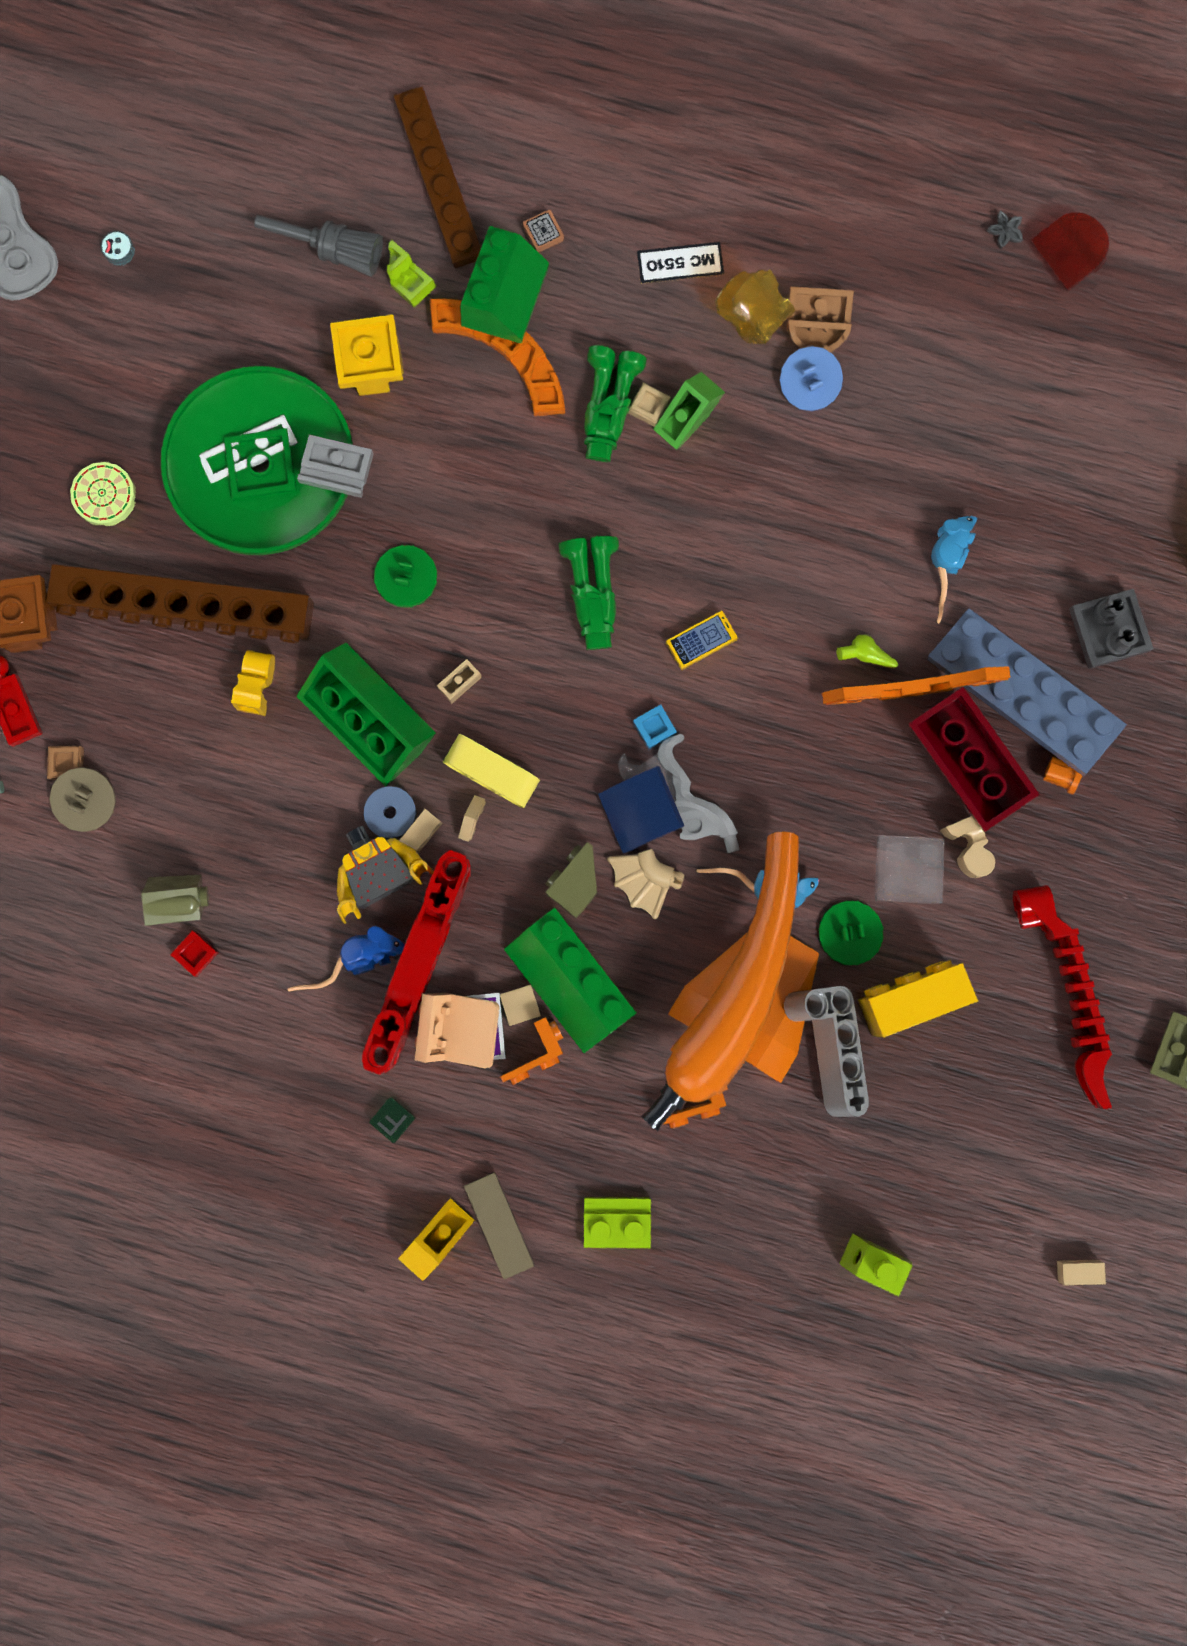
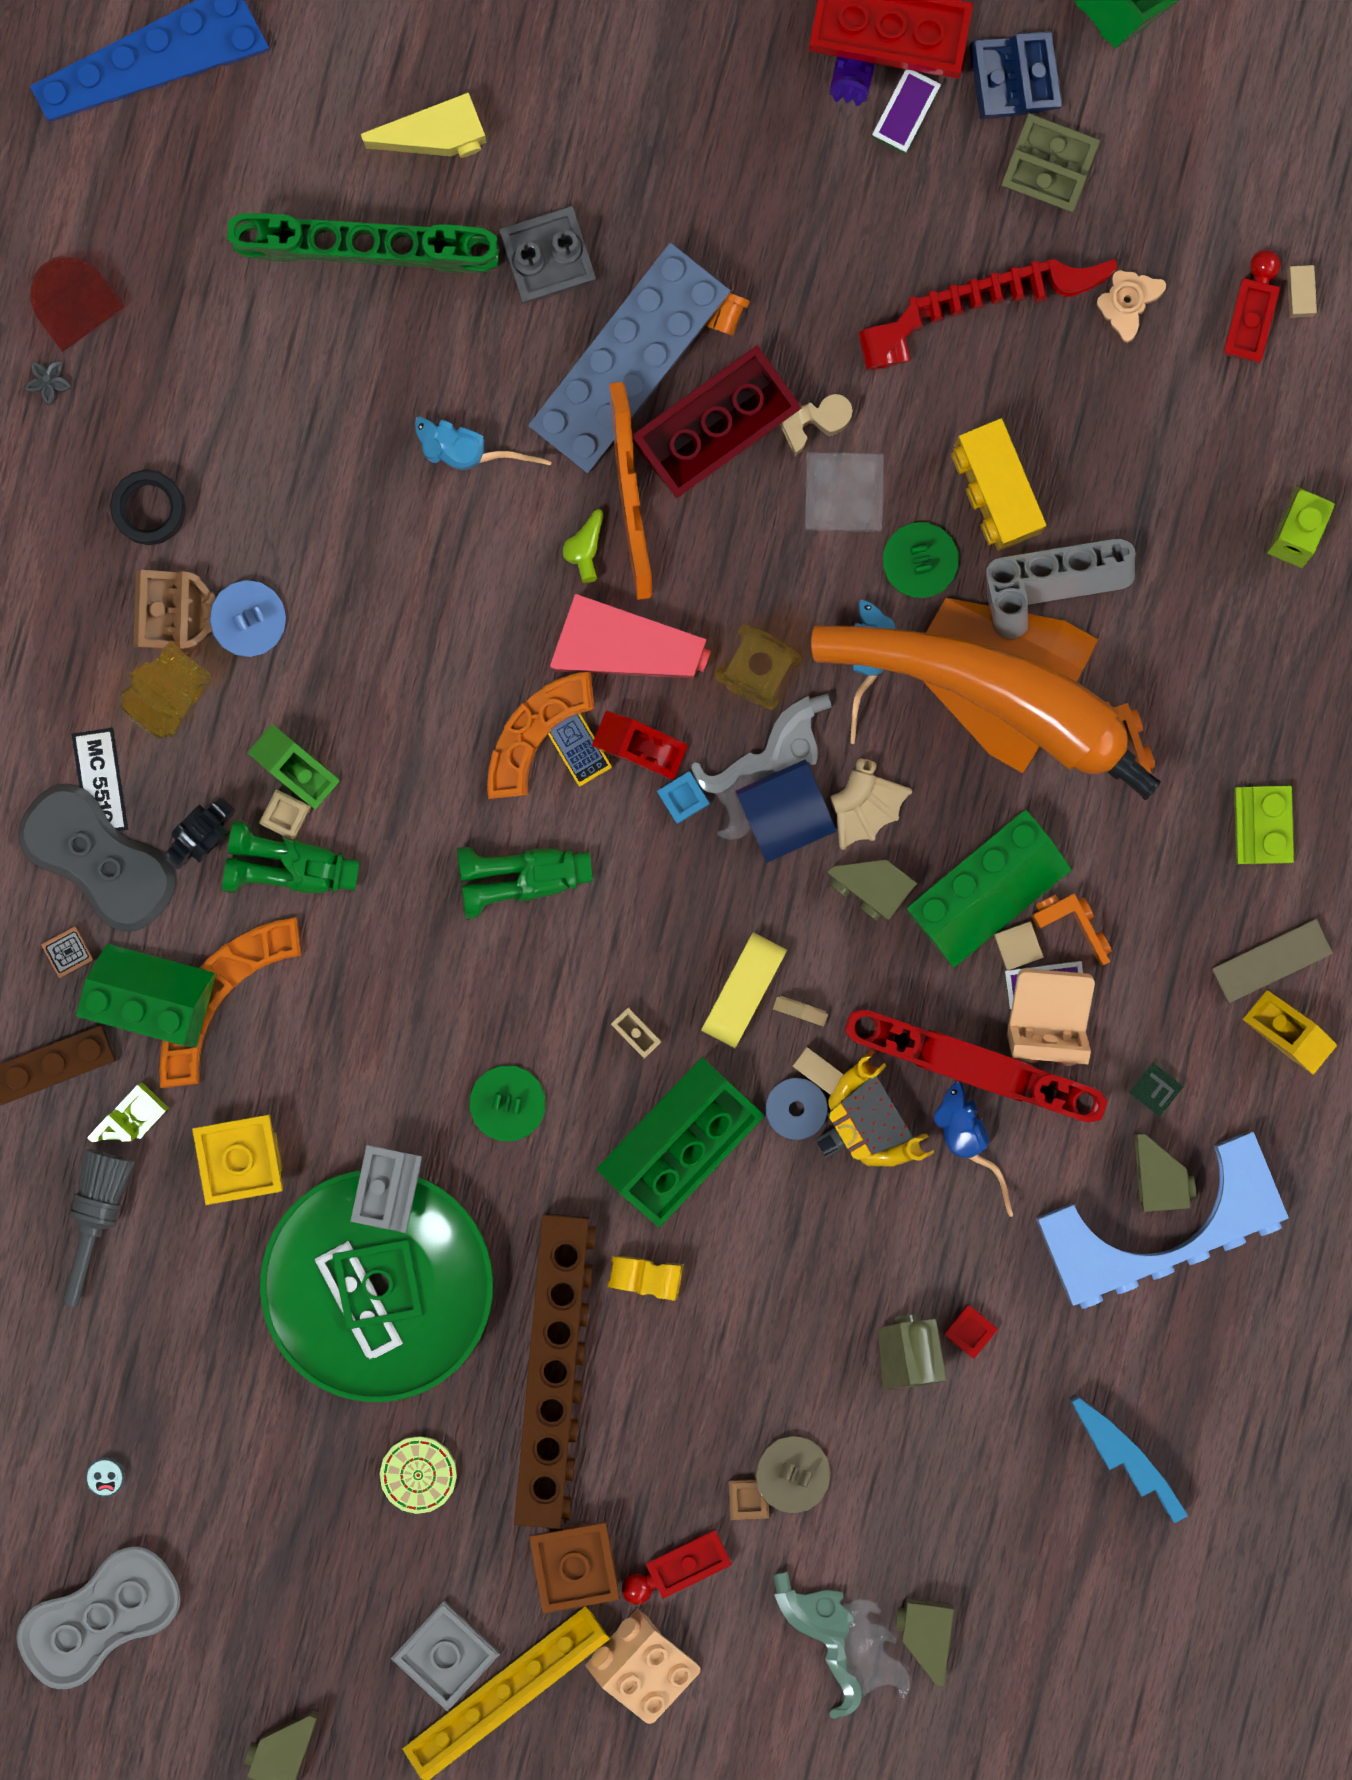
camera: 90 degrees left, 5 degrees up
(84, 1078) = (1118, 1449): none -> dark azure slope
(286, 1192) = (1244, 1204): none -> light blue arch
(314, 1121) = (1161, 1178): none -> olive slope
(604, 274) = (73, 838): none -> dark grey plate
(636, 328) = (199, 833): none -> black gear
(699, 690) = (639, 744): none -> red arch
(715, 600) = (528, 728): none -> orange tile
(747, 789) = (758, 687): none -> clear yellow piece
(785, 677) = (622, 643): none -> coral slope
(908, 279) = (144, 478): none -> black tyre
(1060, 1115) = (1125, 315): none -> light nougat animal
(1065, 1229) = (1254, 309): none -> red plate
(1123, 420) = (302, 246): none -> green piece

